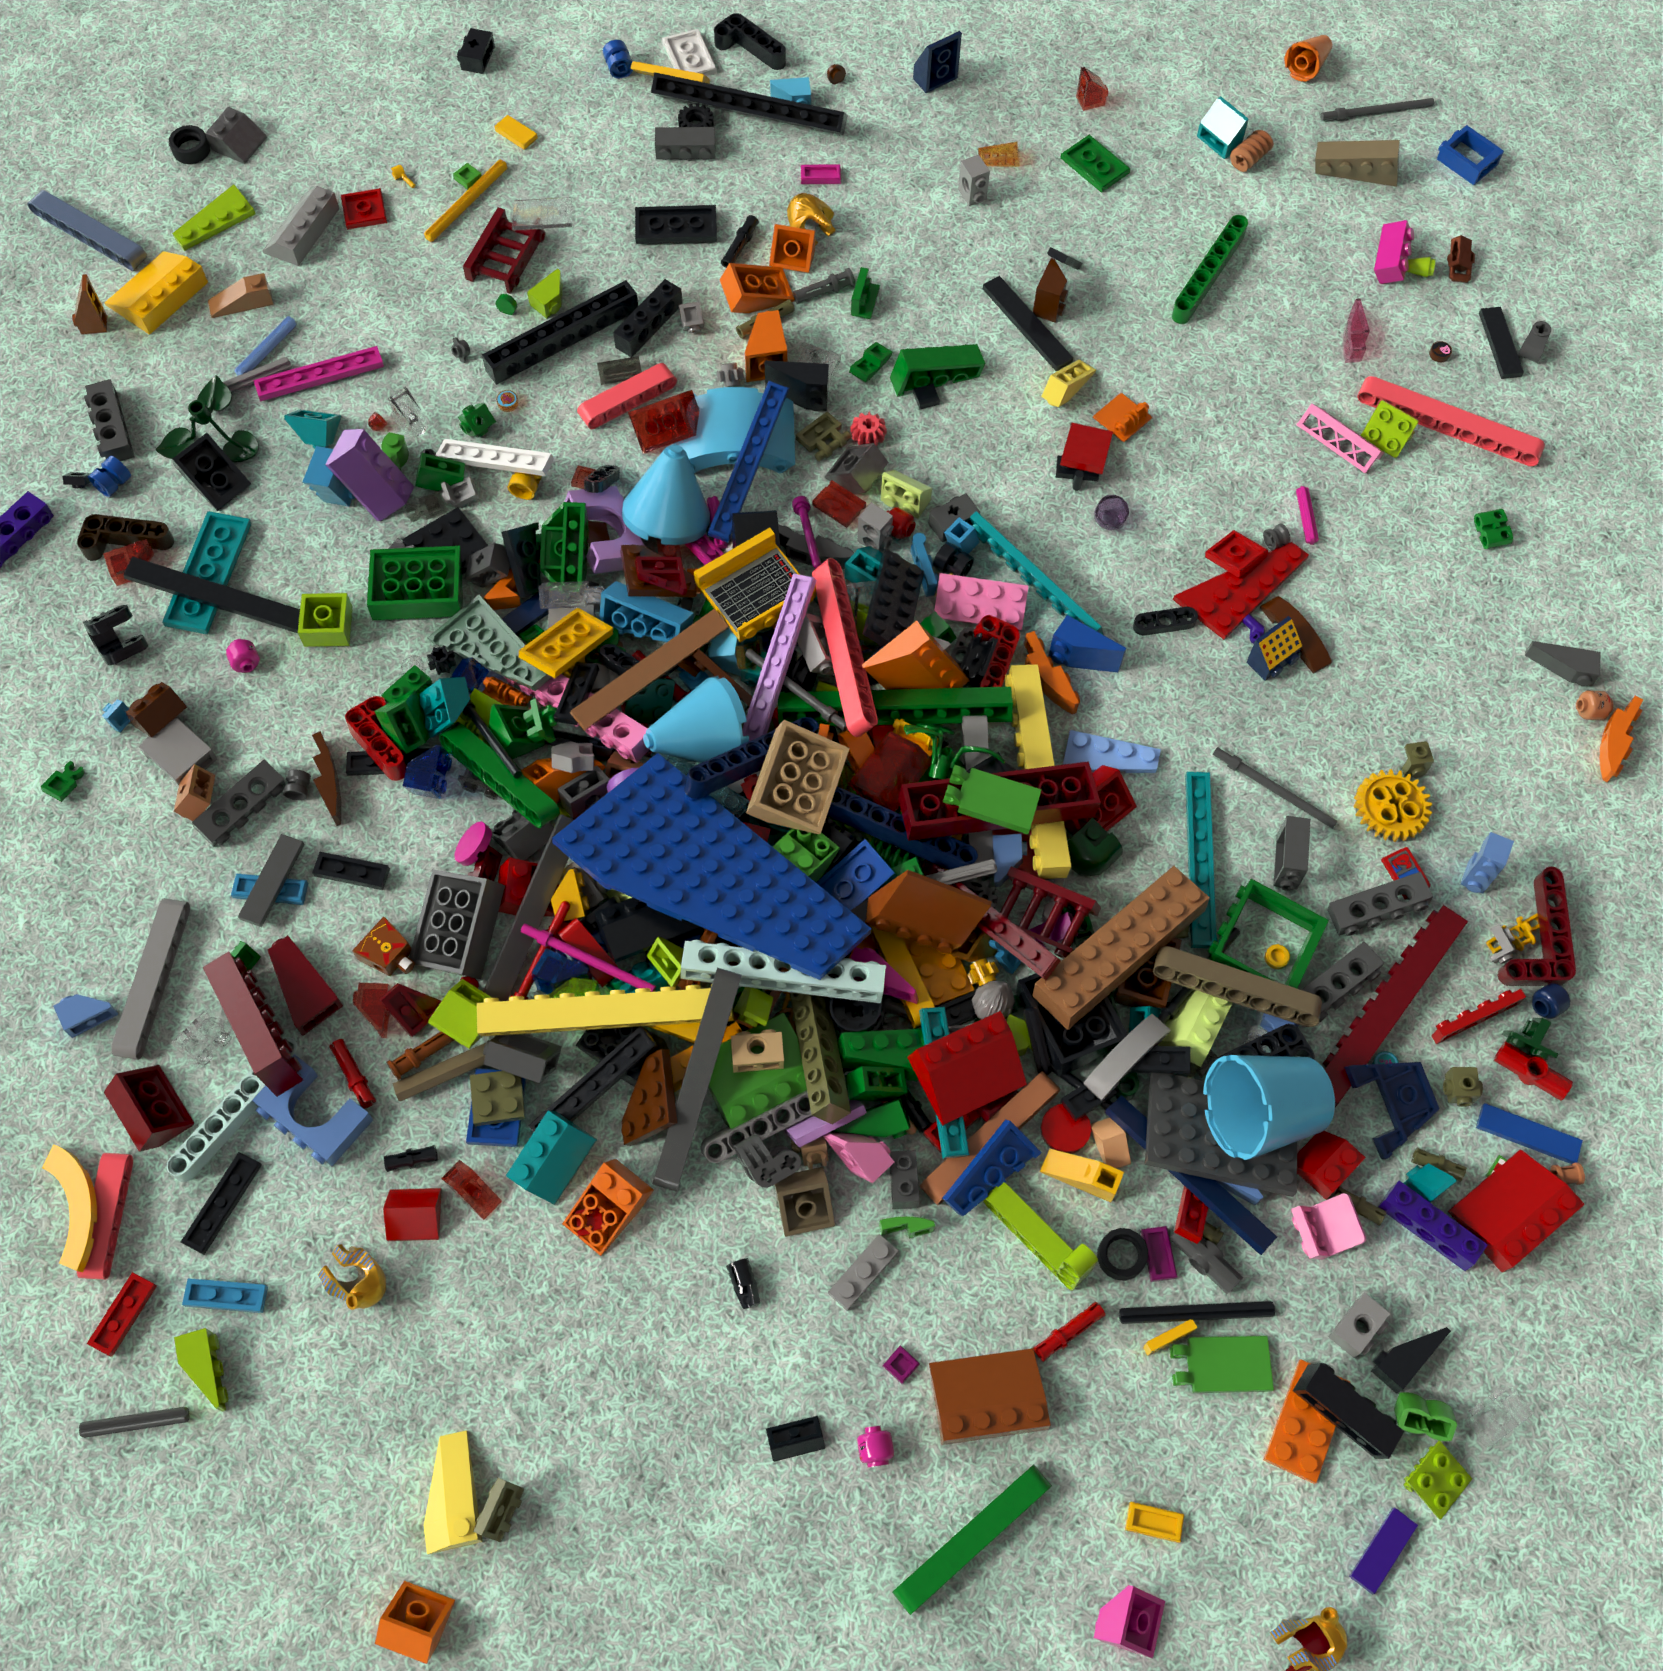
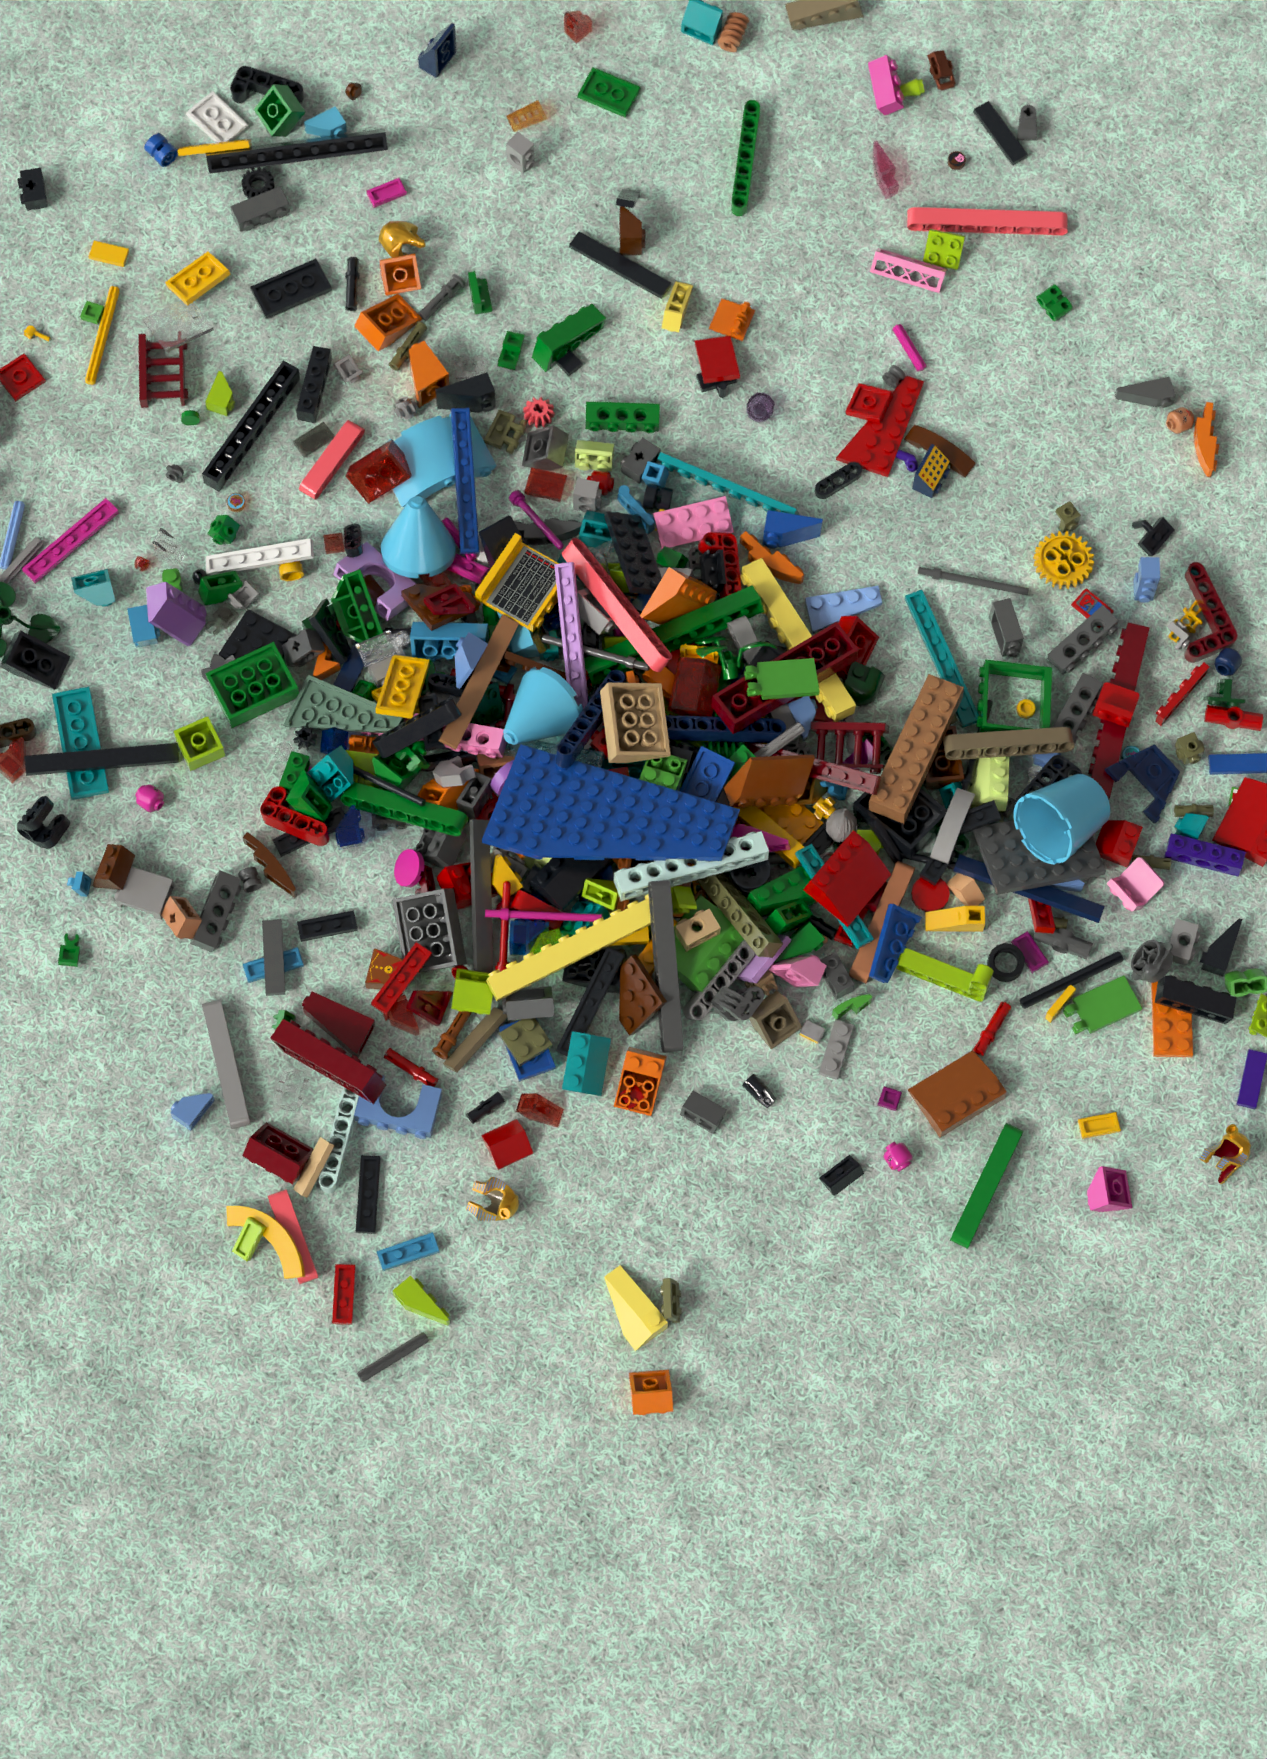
camera: 25 degrees left, 5 degrees up
(51, 1195) = (248, 1239): none -> lime tile
(172, 1142) = (313, 1167): none -> tan tile
(391, 963) = (401, 978): none -> red plate
(553, 689) = (417, 728): none -> black beam
(587, 181) = (197, 278): none -> yellow plate
(651, 635) = (467, 656): none -> medium blue slope
(663, 1279) = (703, 1112): none -> dark grey hinge
(750, 61) = (279, 110): none -> green brick
(844, 1236) = (812, 1031): none -> flat silver piece
(956, 467) = (614, 410): none -> green brick
(1310, 1334) = (1152, 961): none -> dark grey piece
(1391, 994) = (1116, 704): none -> red bracket
(1516, 819) = (1155, 535): none -> black plate

